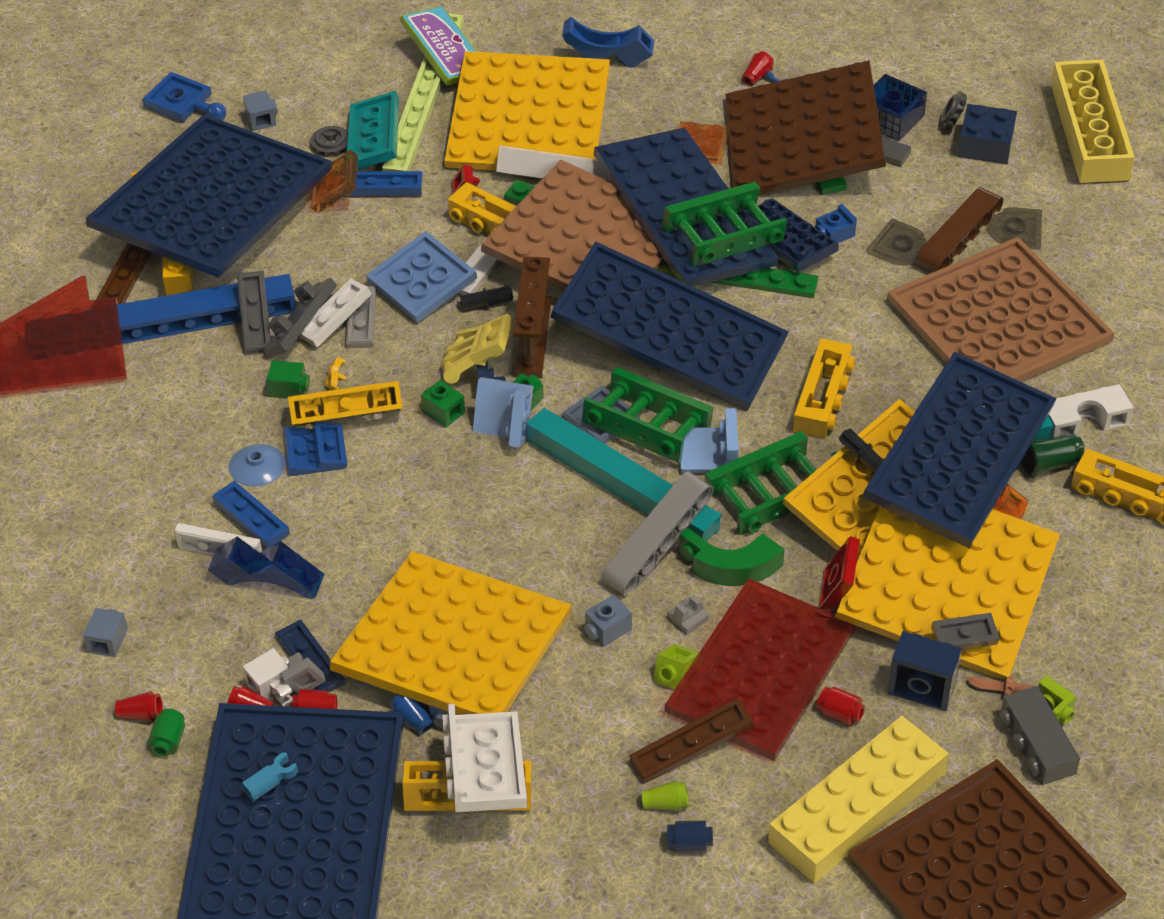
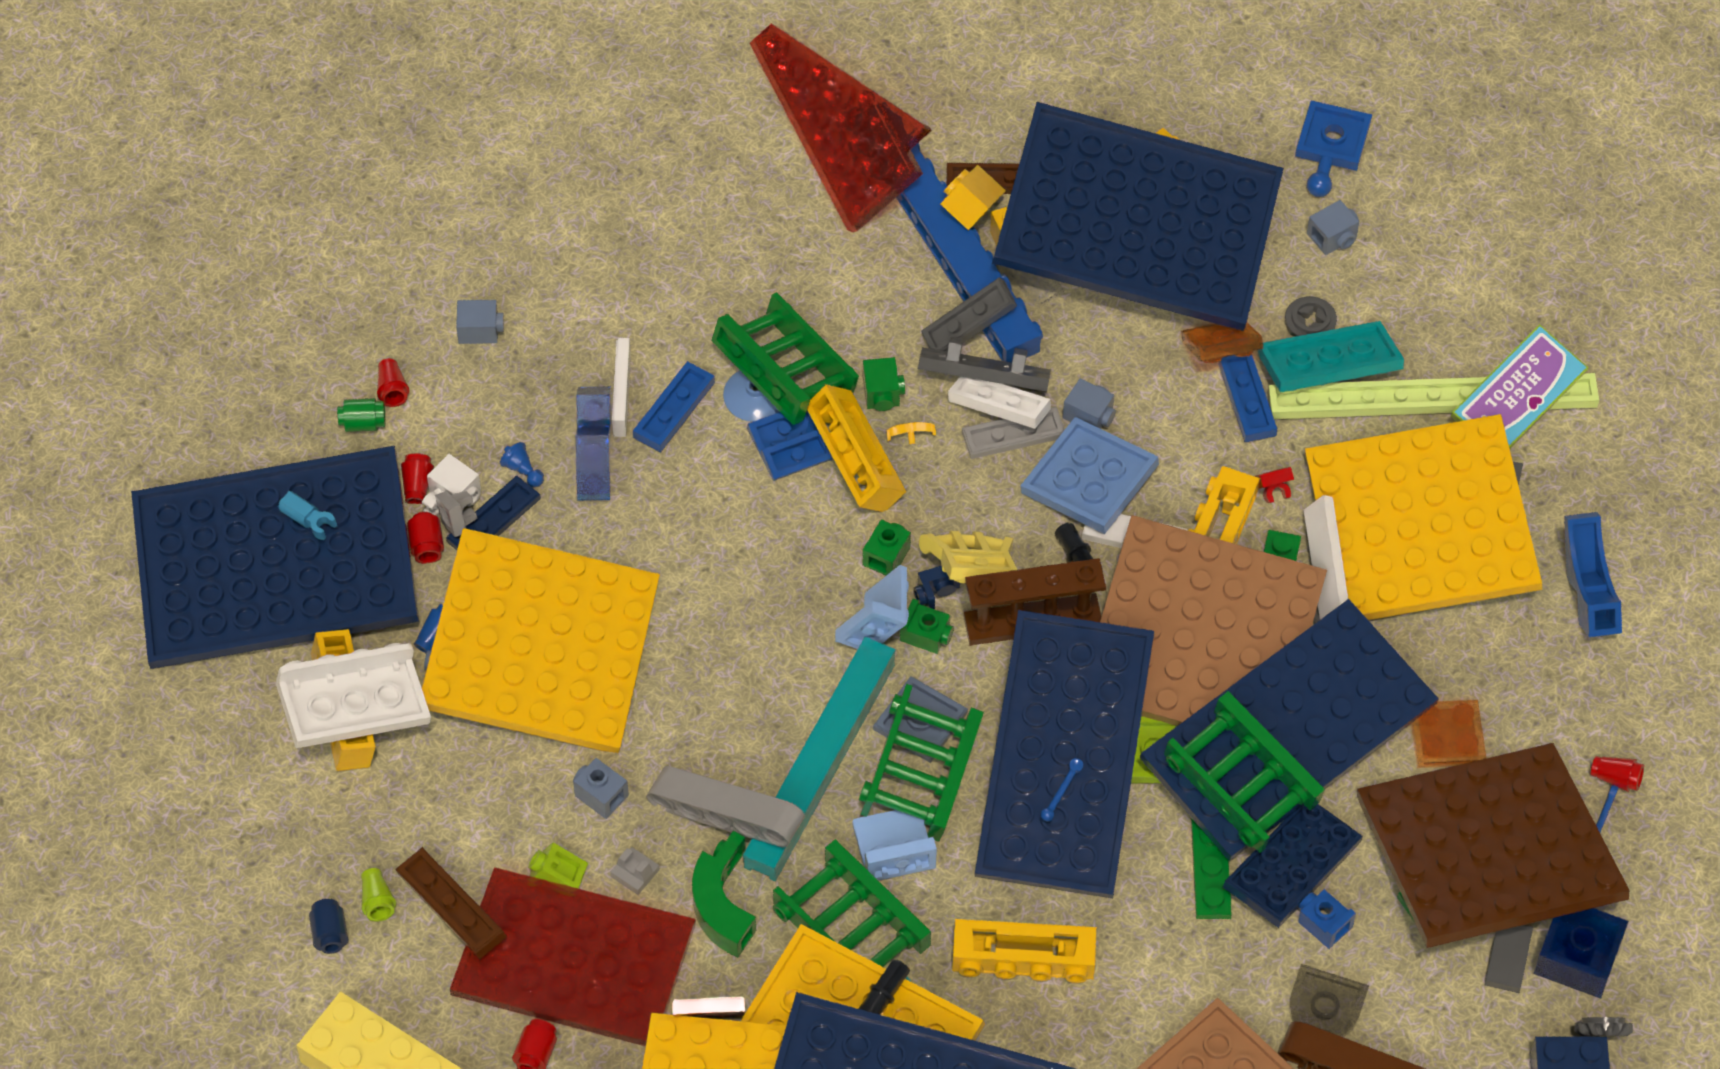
camera: 75 degrees right, 10 degrees up
(143, 286) = (971, 196): none -> yellow brick
(244, 442) = (766, 374): none -> green fence
(261, 628) = (518, 460): none -> blue piece
(358, 264) = (1089, 404): none -> sand blue brick
(686, 317) = (1075, 766): none -> blue hinge

